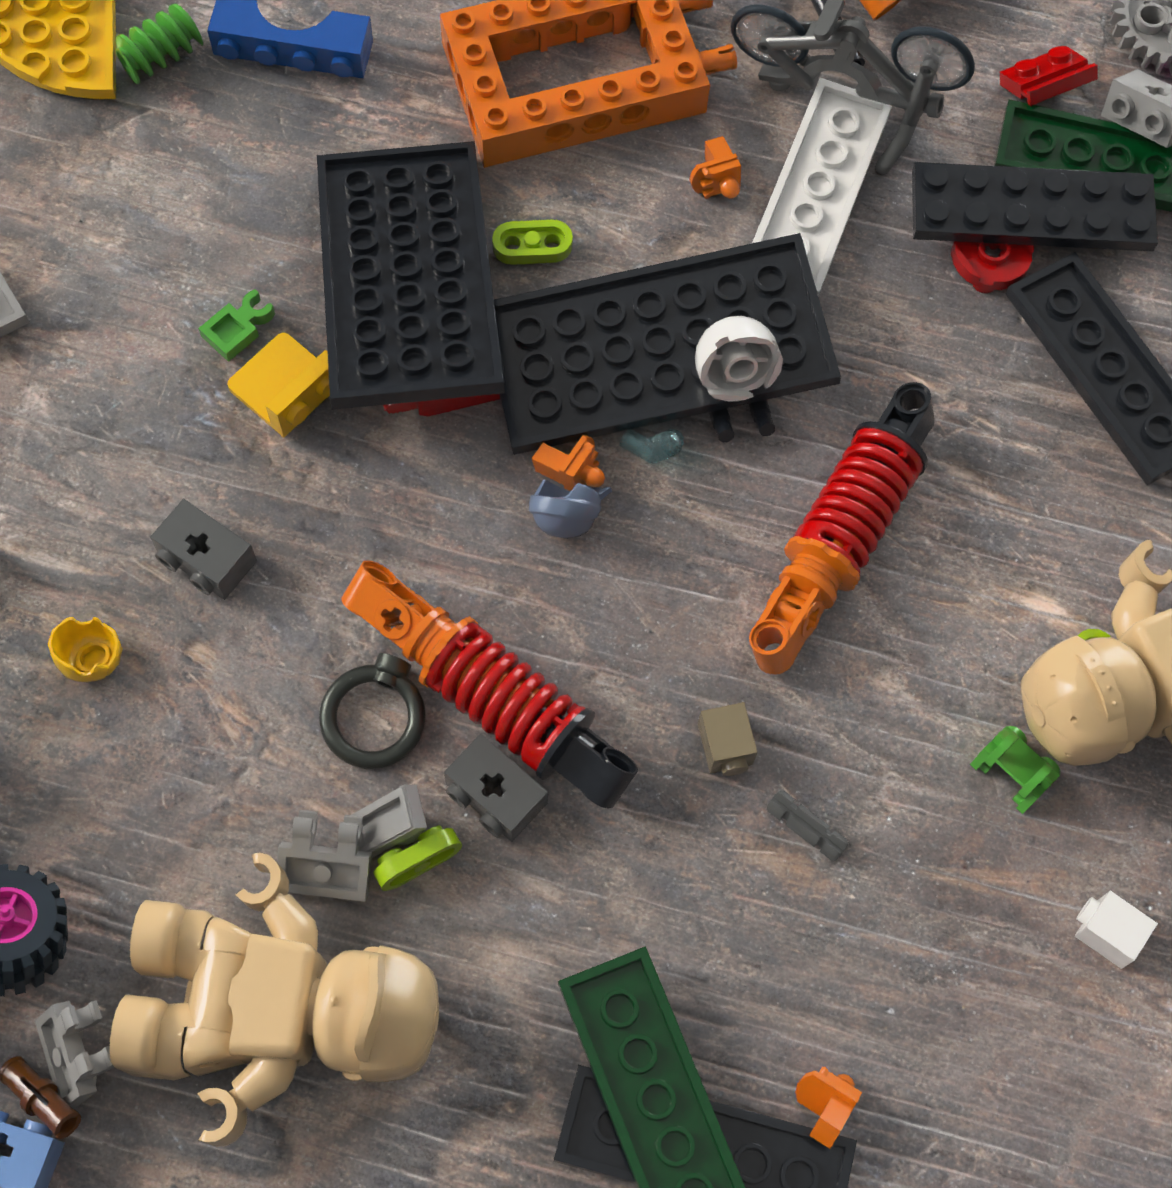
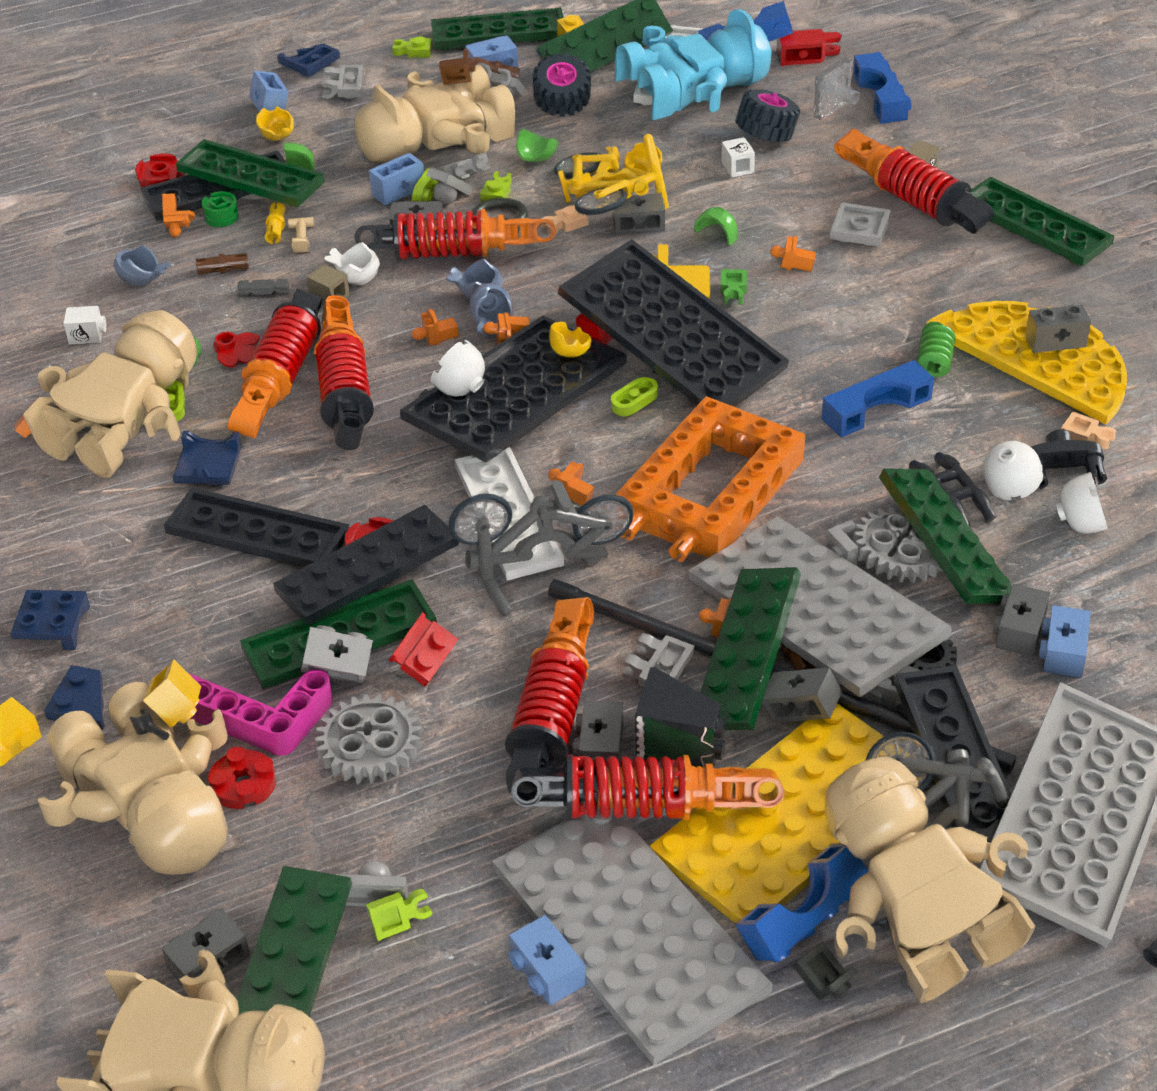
camera: 145 degrees right, 25 degrees down
(112, 321) = (792, 256): none -> orange piece
(128, 450) = (721, 217): none -> bright green helmet
(179, 1019) = (458, 70): none -> reddish brown bracket
(183, 814) = (535, 147): none -> bright green helmet
(253, 564) = (603, 196): none -> yellow piece
(289, 632) = (566, 219): none -> light nougat plate
(320, 784) = (497, 188): none -> lime plate
(449, 898) = (395, 178): none -> medium blue brick
(537, 570) = (474, 276): none -> sand blue hat
(545, 338) = (568, 342): none -> yellow hair
(552, 1080) = (299, 155): none -> bright green helmet
(655, 541) = (435, 330): none -> orange piece
(664, 743) = (358, 263): none -> white hat
(665, 917) = (300, 243): none -> tan piece
(690, 966) = (275, 223): none -> yellow pin
(747, 1094) = (220, 209): none -> green wheel
(829, 930) = (222, 263): none -> reddish brown pin
(908, 613) = (276, 361): none -> piece
(926, 711) = (235, 348): none -> red plate
(965, 1001) = (138, 266): none -> sand blue hat
(1100, 522) = (207, 460): none -> dark blue piece

